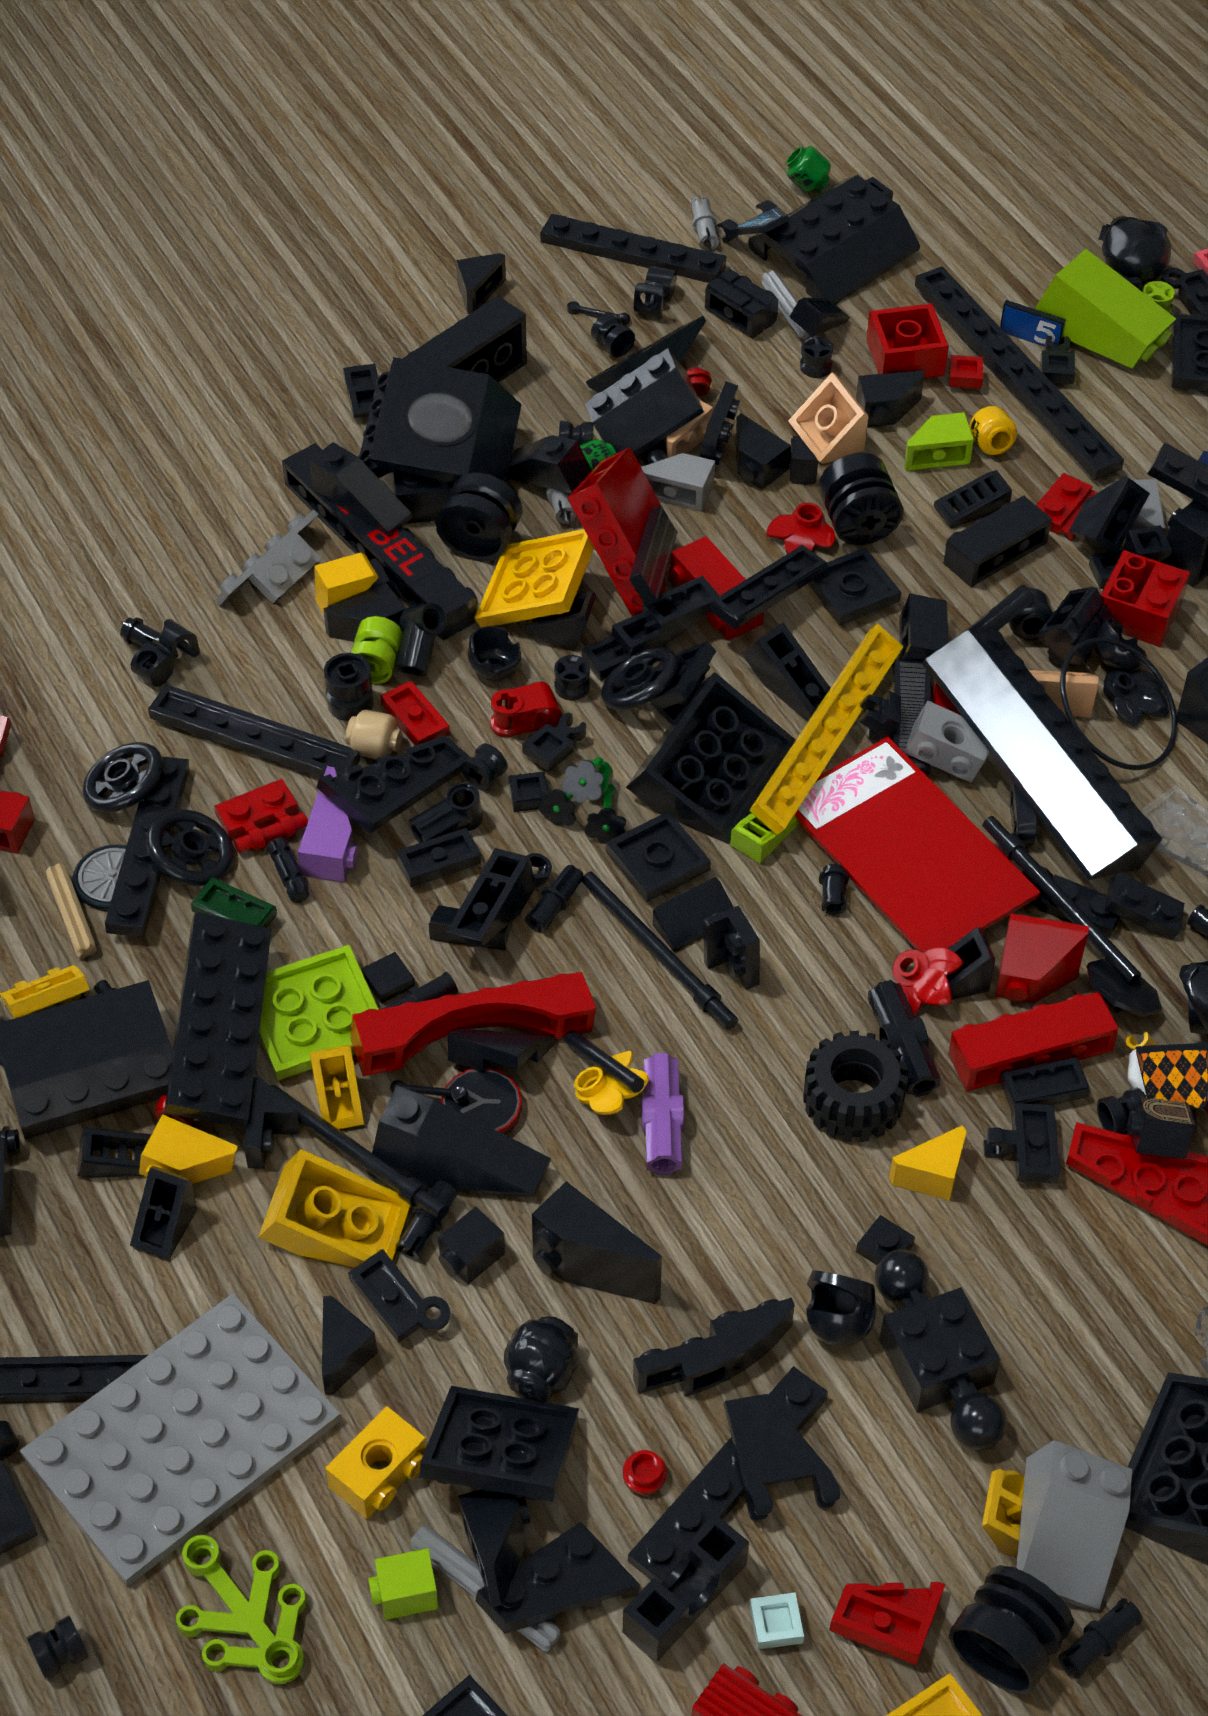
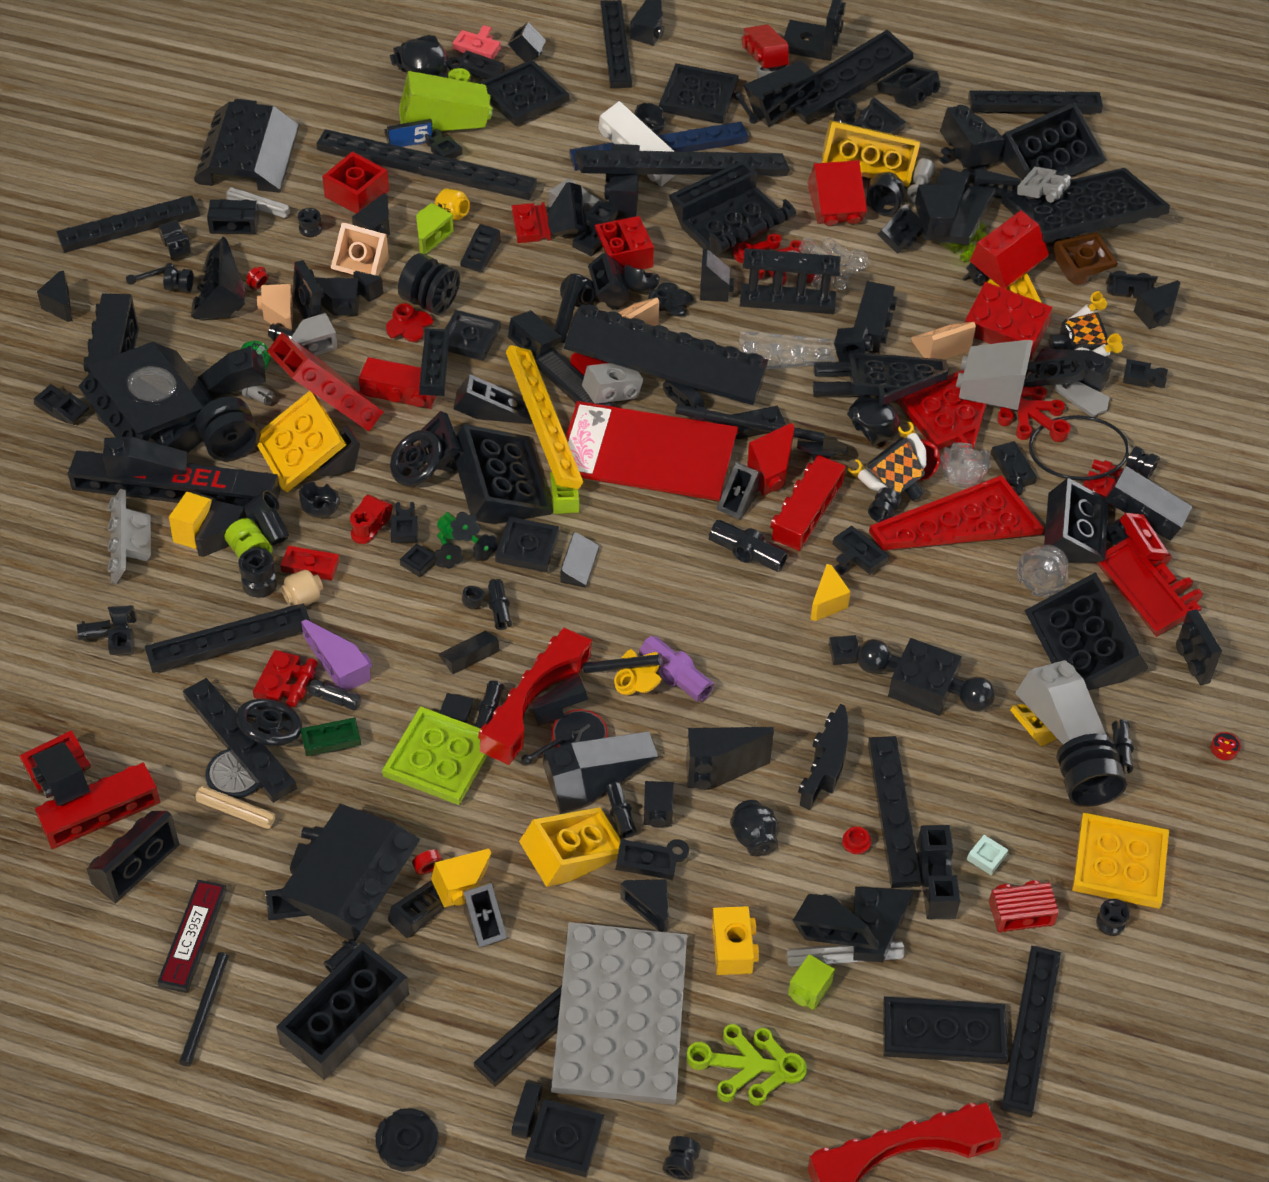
camera: 45 degrees left, 0 degrees up
(56, 987) = (280, 856): yellow plate -> none
(122, 777) = (176, 709): black plate -> none
(218, 1021) = (404, 793): black plate -> none
(267, 1116) = (480, 826): black slope -> none
(336, 1086) = (500, 783): yellow slope -> none
(393, 783) = (347, 604): black wing -> none
(409, 1189) = (603, 799): black bar -> none
(438, 857) = (412, 628): black plate -> none
(457, 811) = (393, 602): black piece -> none
(484, 766) = (382, 563): black wheel -> none
(494, 898) = (475, 624): black slope -> none
(500, 1443) = (785, 879): black plate -> none
(572, 677) = (374, 482): black wheel -> none
(582, 433) = (218, 351): black wheel -> none
(645, 405) = (255, 305): black slope -> none
(652, 627) = (390, 426): black slope -> none
(653, 555) = (356, 384): black tile -> none
(704, 223) = (156, 183): light grey pin -> none
(704, 995) = (630, 596): black bar -> none
(733, 942) = (626, 556): black bracket -> none
(768, 220) = (196, 161): black flag -> none
(773, 1453) = (908, 782): black flag -> none
(808, 169) = (186, 116): green head -> none
(817, 315) = (287, 198): black slope -> none
(833, 891) = (628, 493): black pin -> none
(840, 1308) = (865, 691): black helmet -> none
(851, 1112) = (752, 600): black tyre -> none
(881, 715) = (562, 392): black tile -> none
(888, 1617) = (1031, 812): red wing -> none
(929, 977) = (731, 506): red plate -> none
(966, 371) = (401, 181): red plate -> none
(997, 541) = (517, 263): black brick -> none
(1045, 1083) = (834, 519): black plate -> none
(1144, 906) = (789, 400): black plate -> none
(1161, 1127) = (914, 497): black brick -> none
(1166, 690) = (684, 286): black piece -> none

